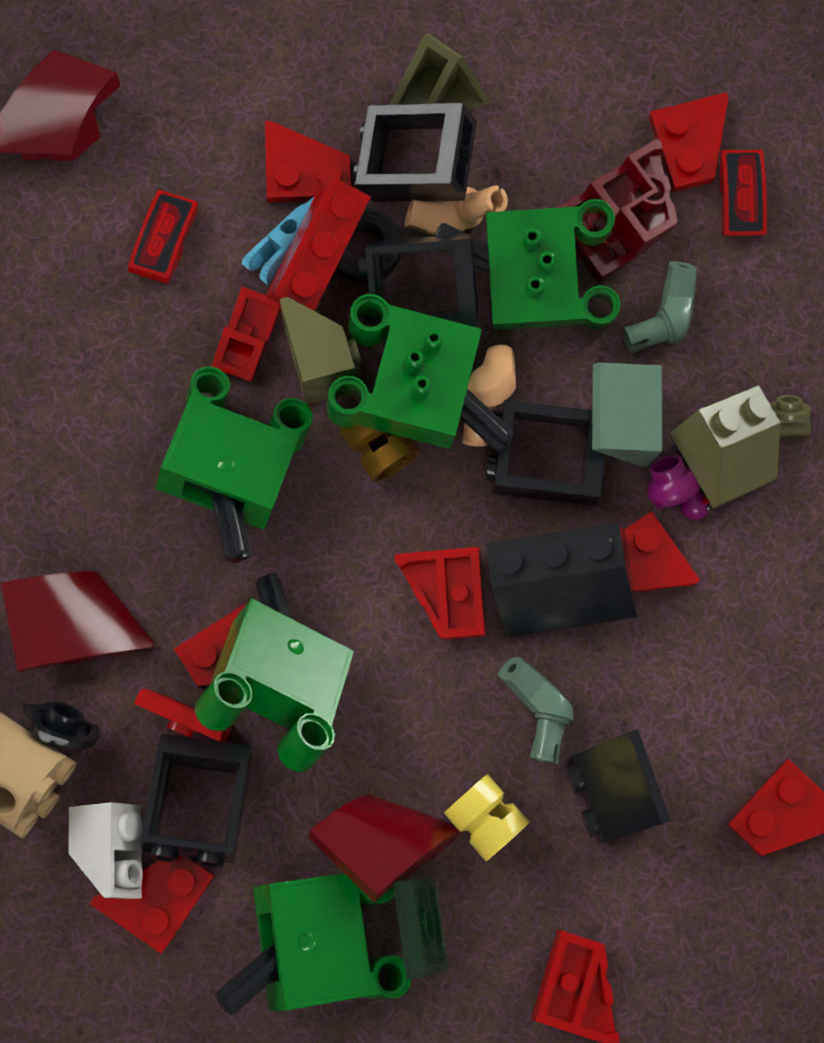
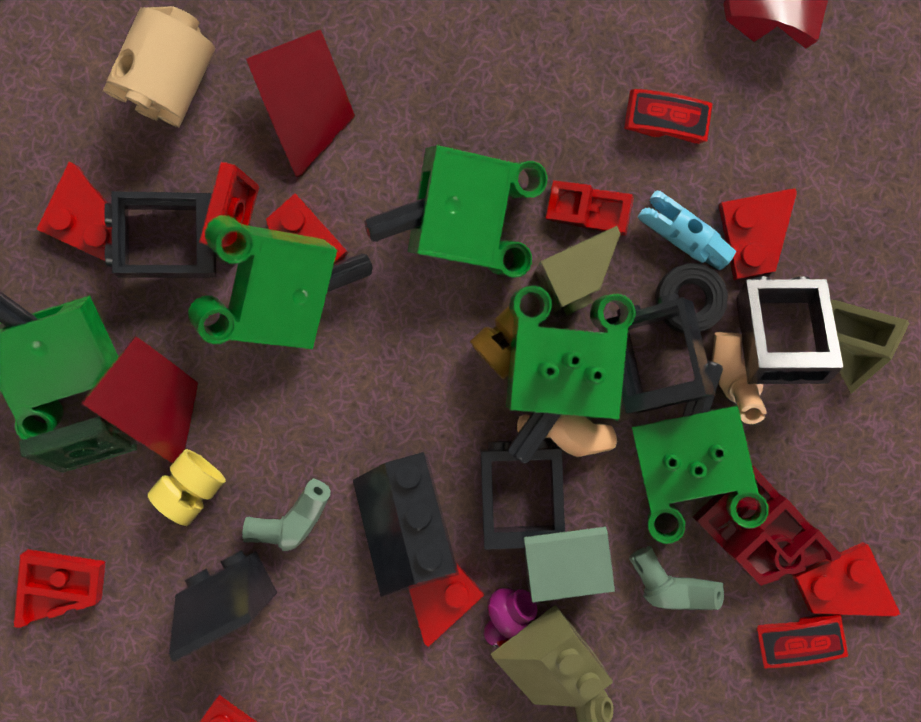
camera: 85 degrees right, 10 degrees up
(61, 725) = (209, 108): black animal -> none
(108, 847) = (109, 164): white slope -> none
(319, 243) = (679, 255): red brick -> none
(448, 589) = (384, 424): red wing -> none

